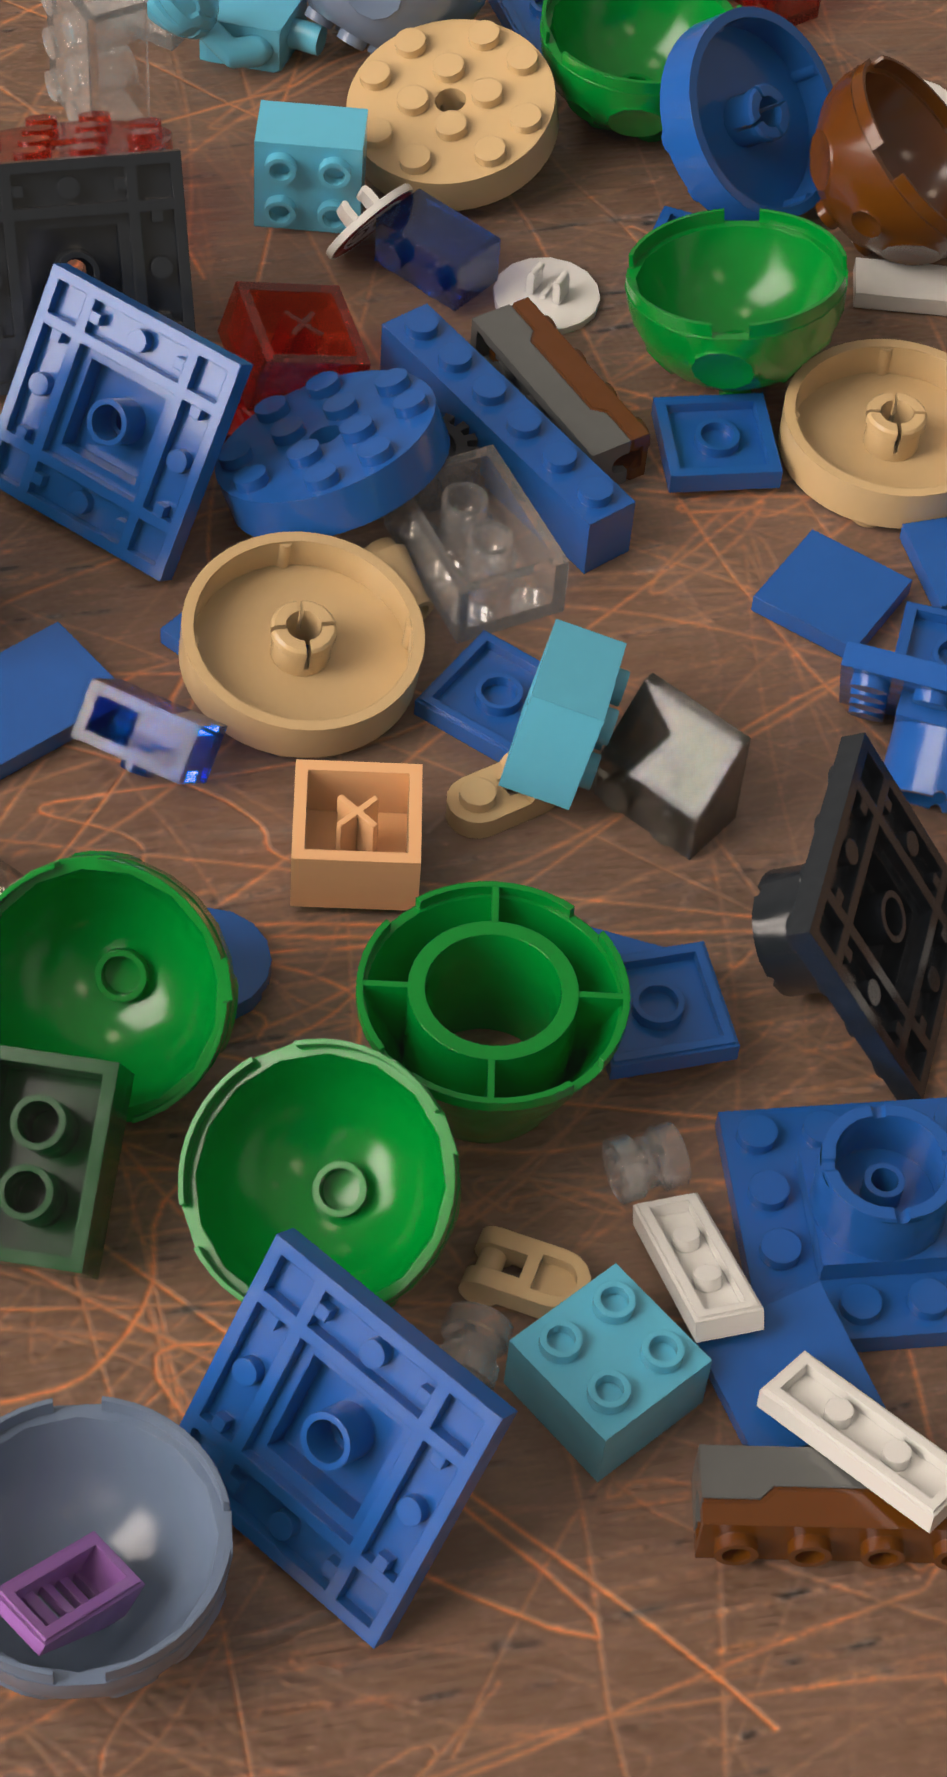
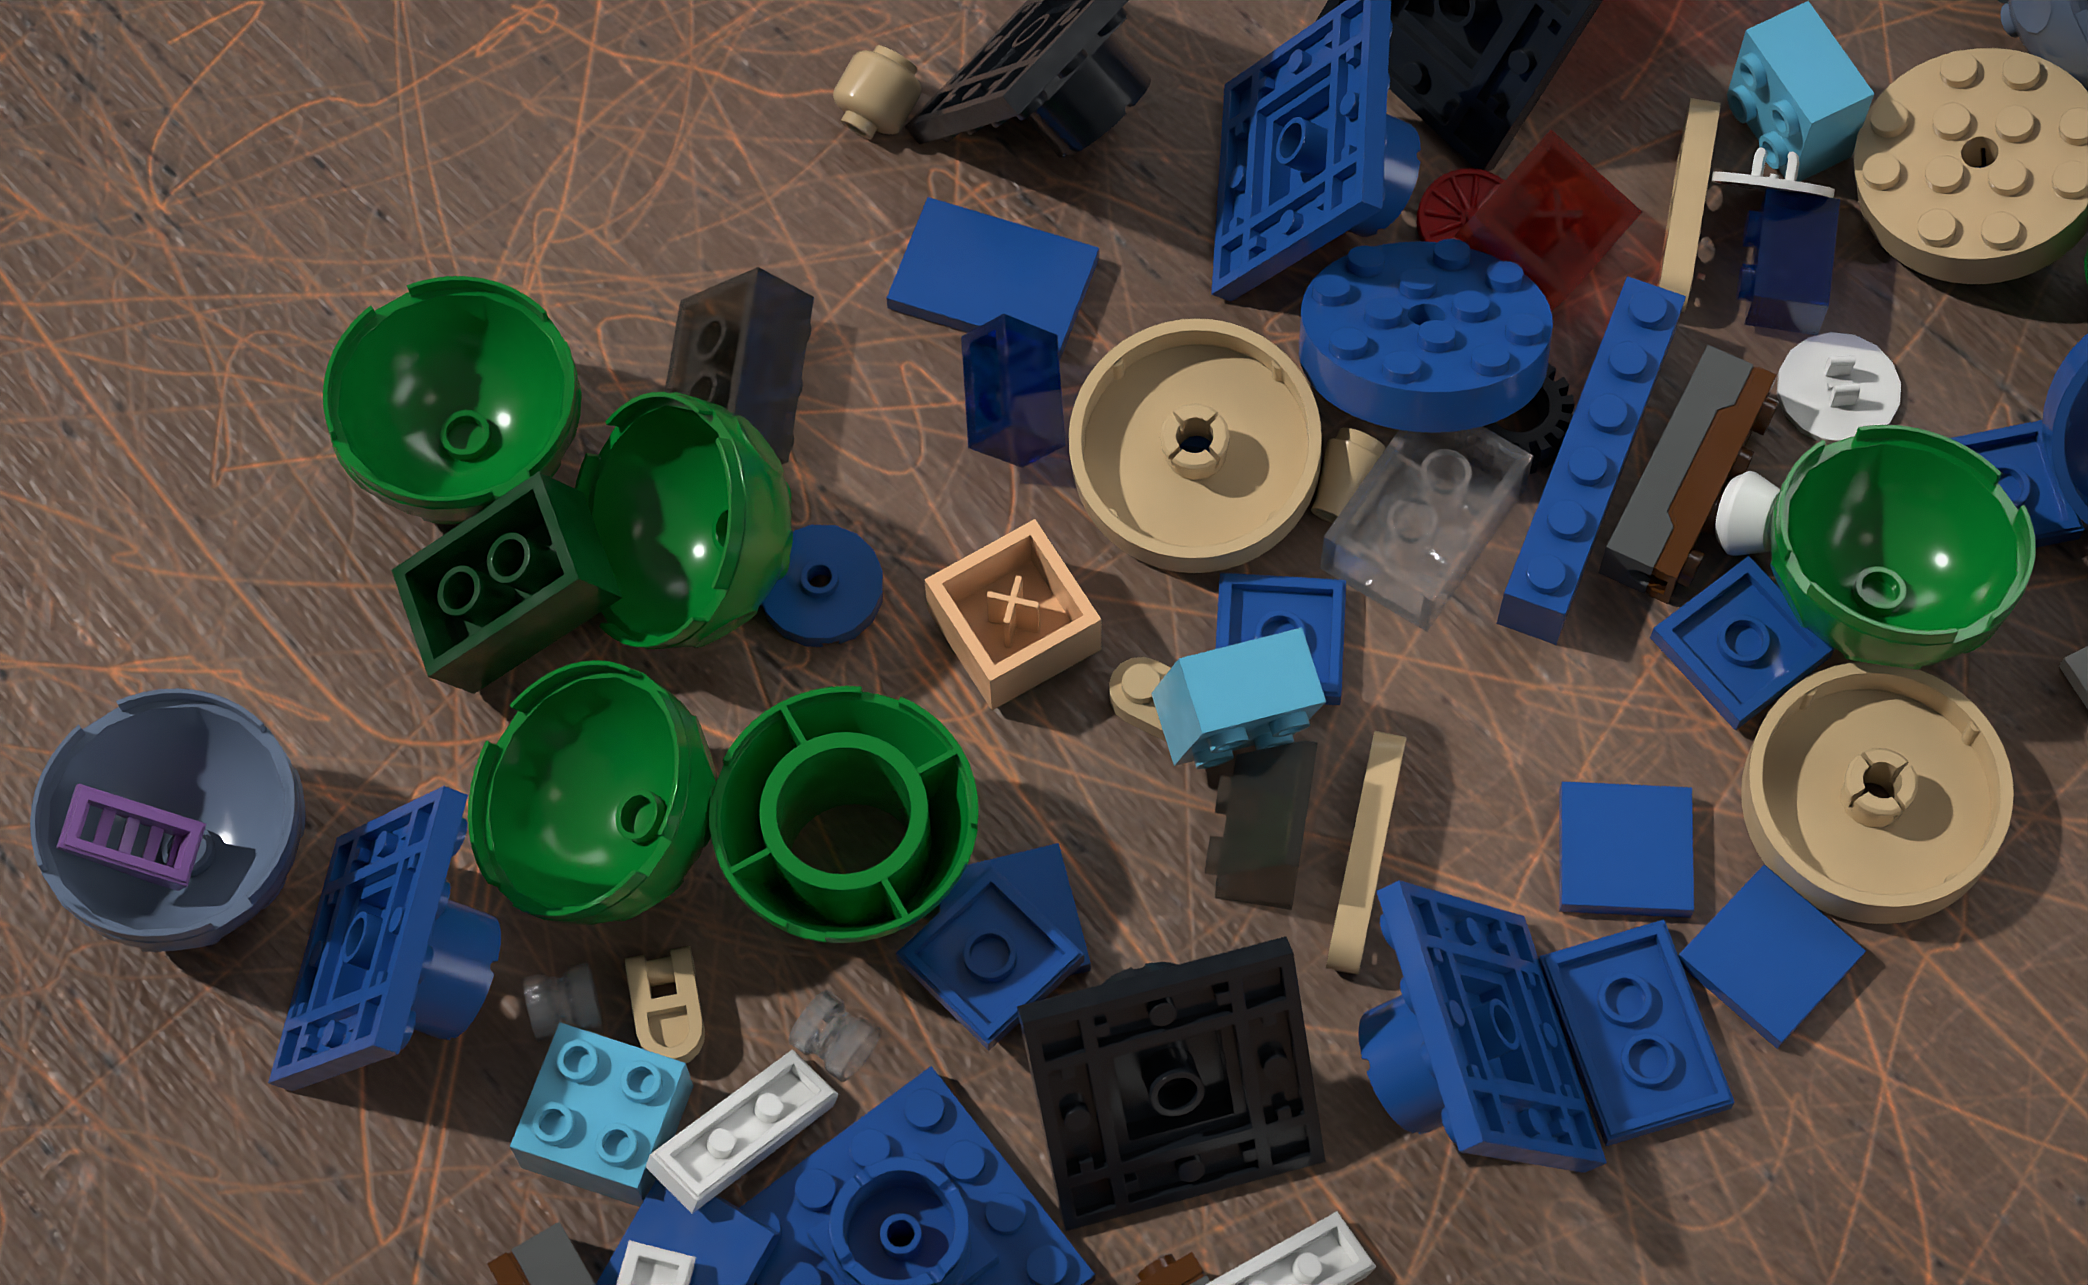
camera: 65 degrees right, 15 degrees up
(294, 252) = (1688, 197): none -> tan beam
(628, 372) = (1746, 515): none -> white cone
(778, 769) = (1366, 853): none -> tan beam

